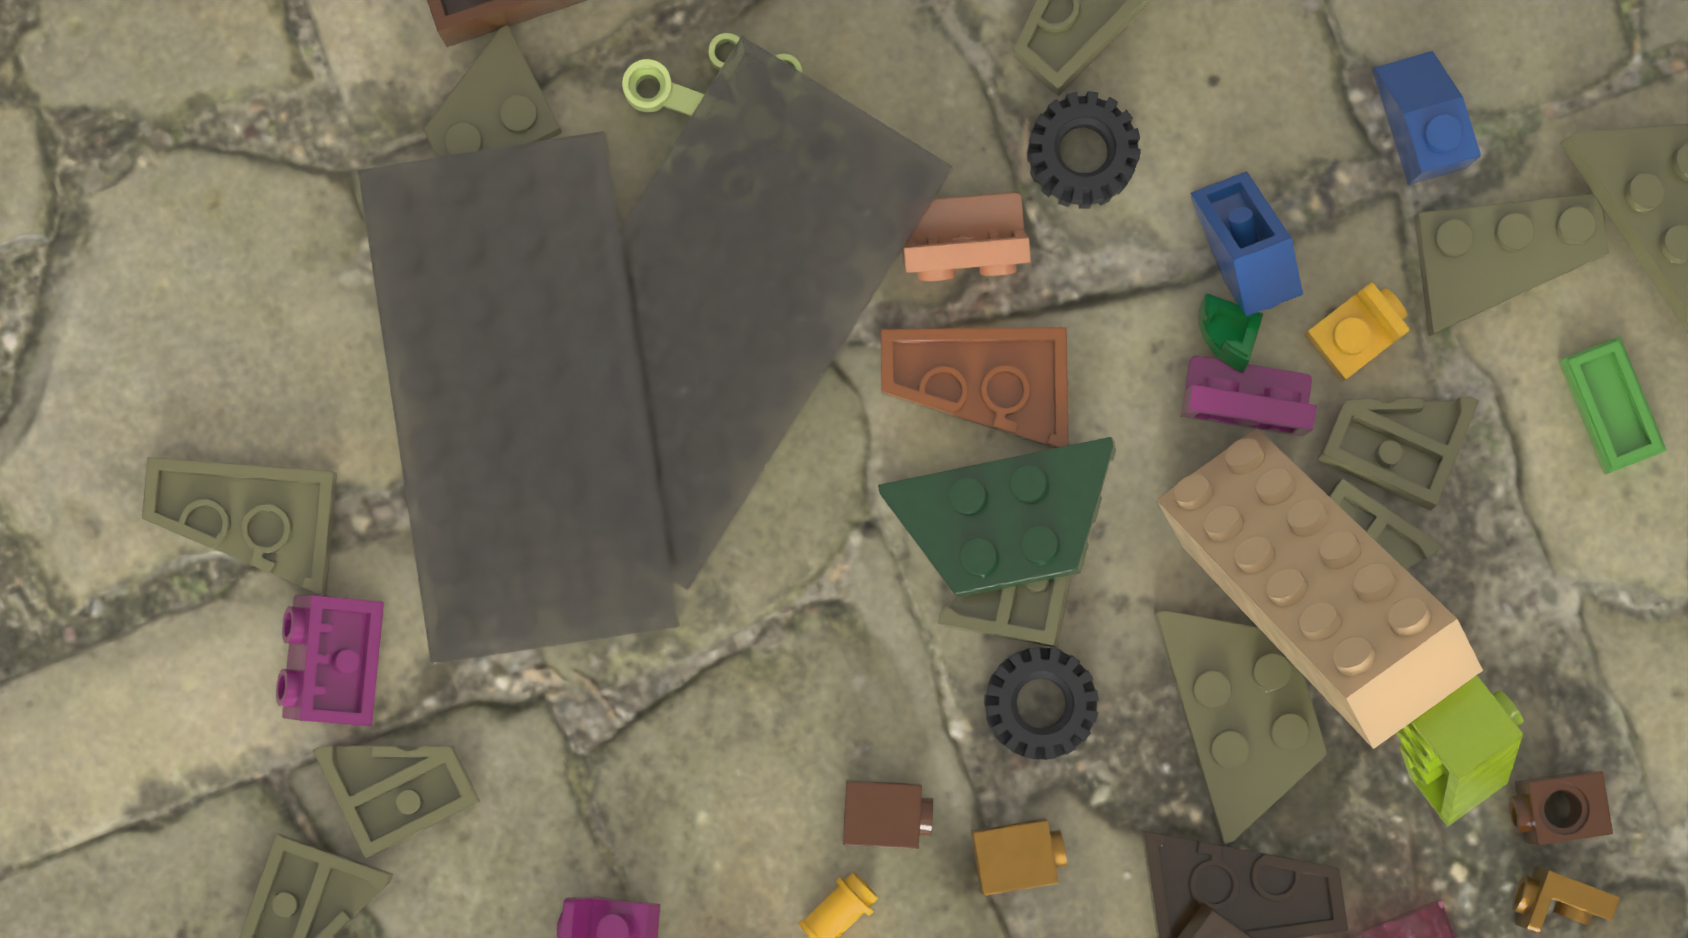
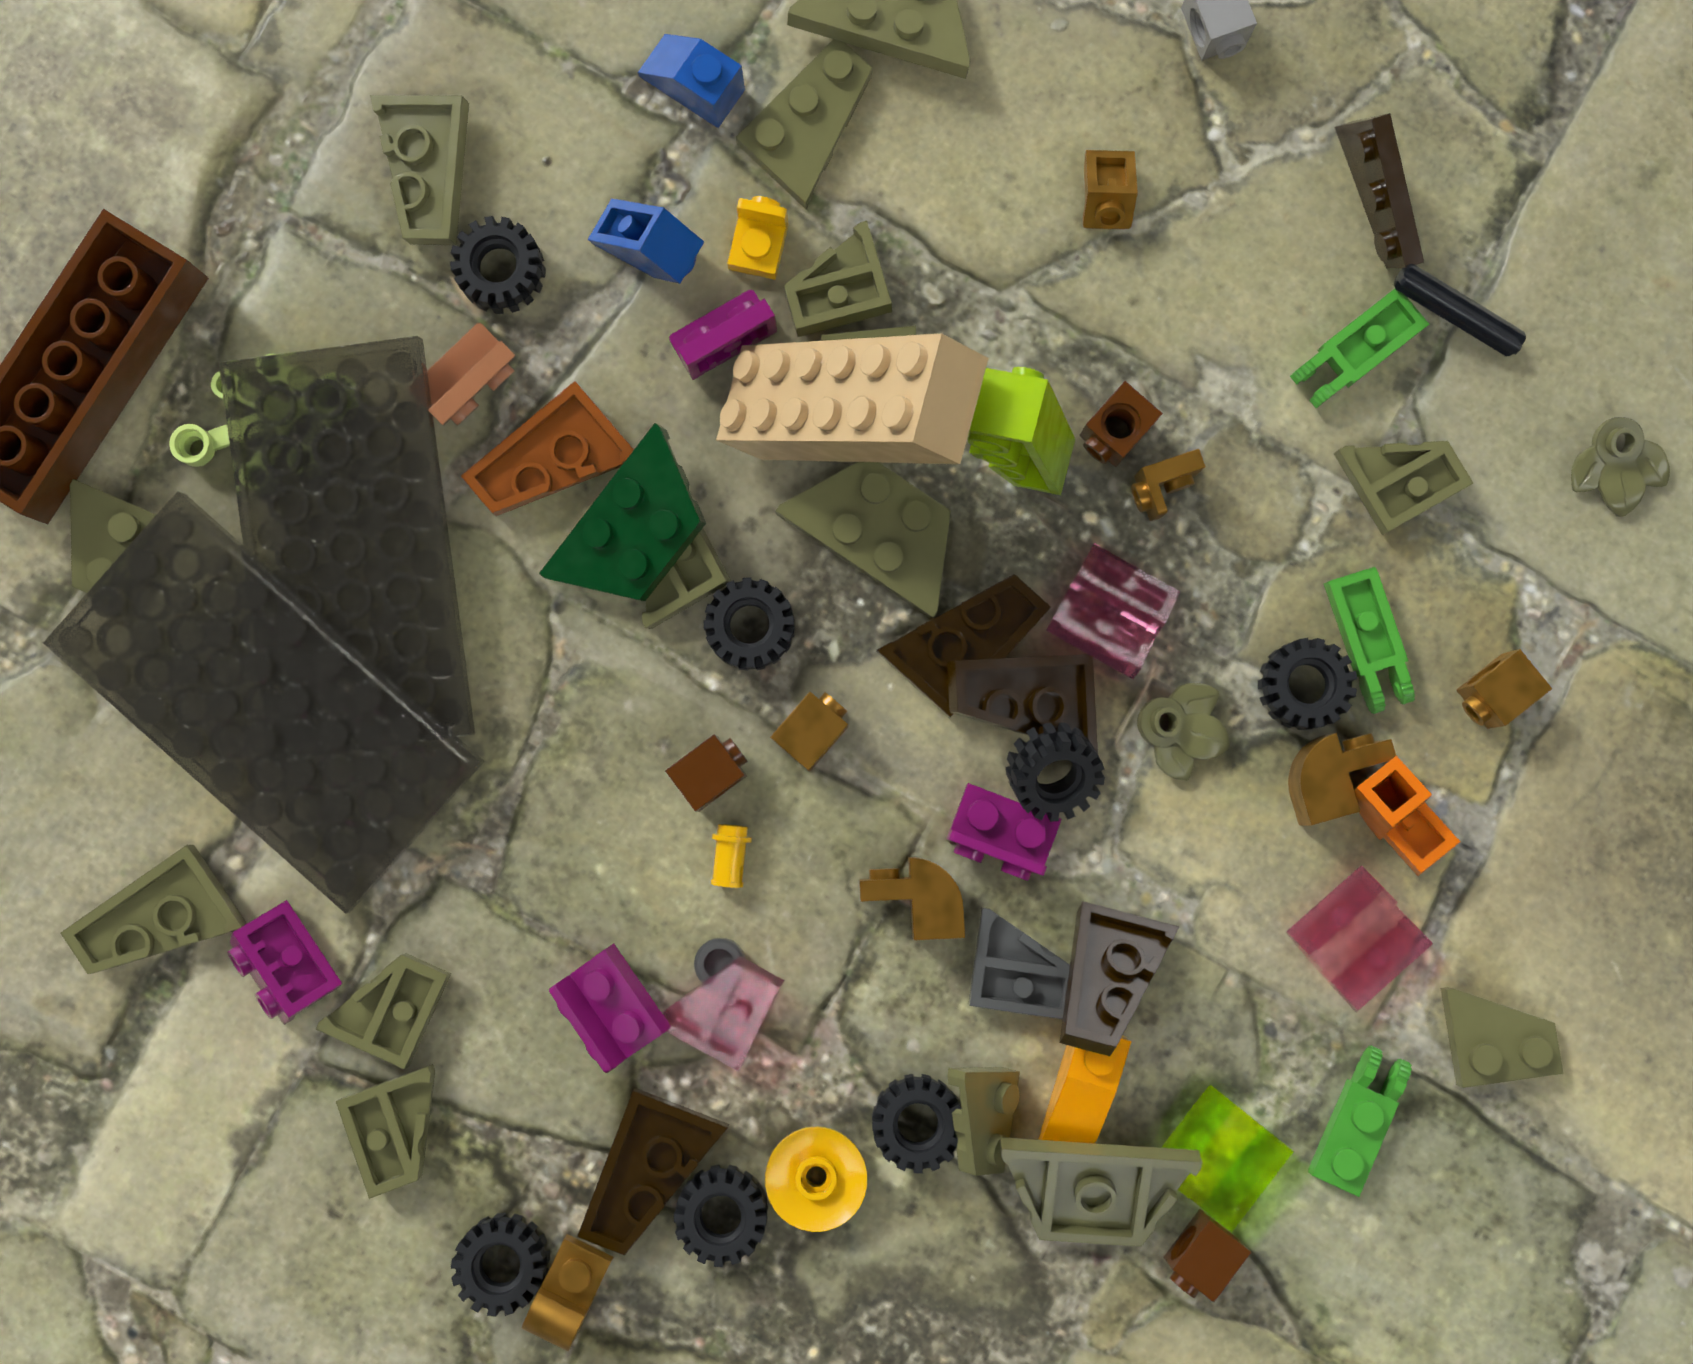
camera: 35 degrees left, 0 degrees up
(1228, 330) = (678, 302): green tile -> none
(1612, 405) = (950, 159): bright green tile -> none

